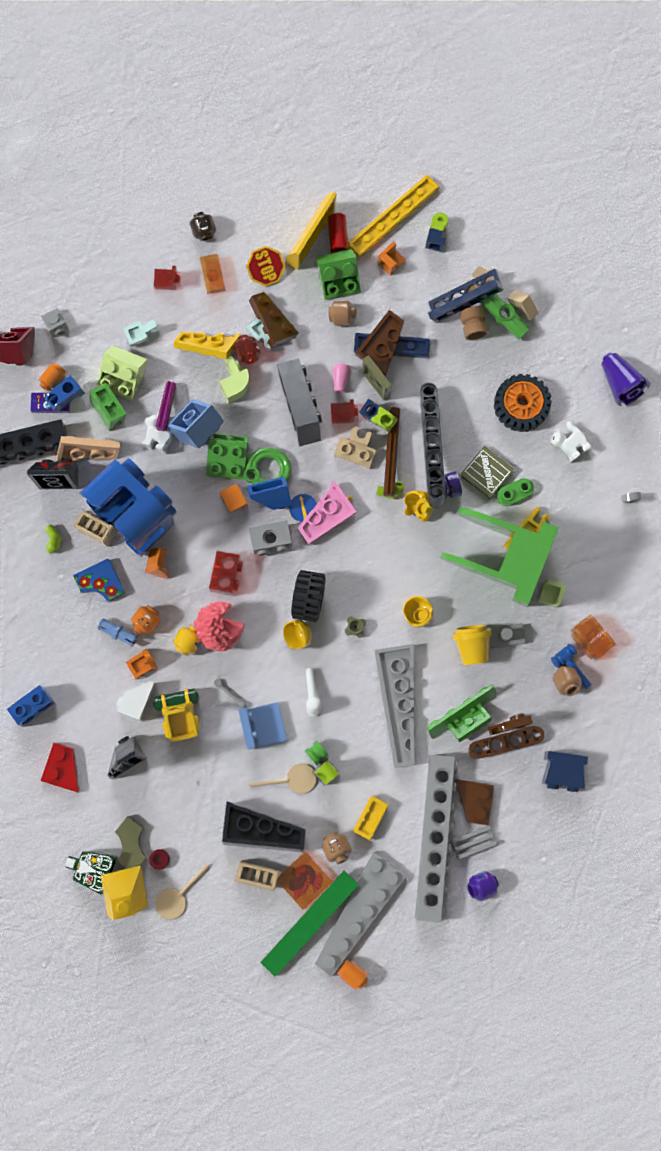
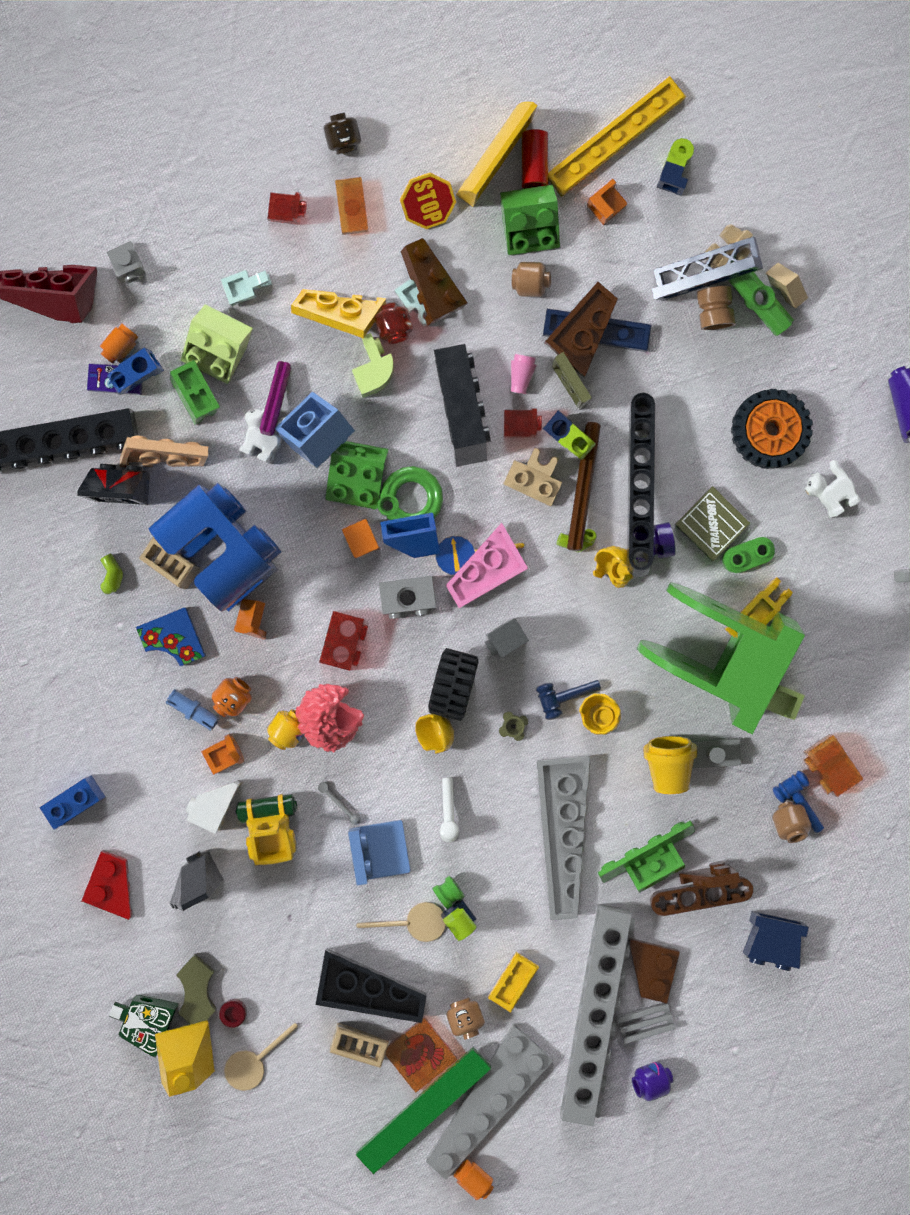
camera: 10 degrees right, 10 degrees up
(344, 560) = (506, 638): none -> dark grey brick
(381, 606) = (550, 699): none -> dark blue piece

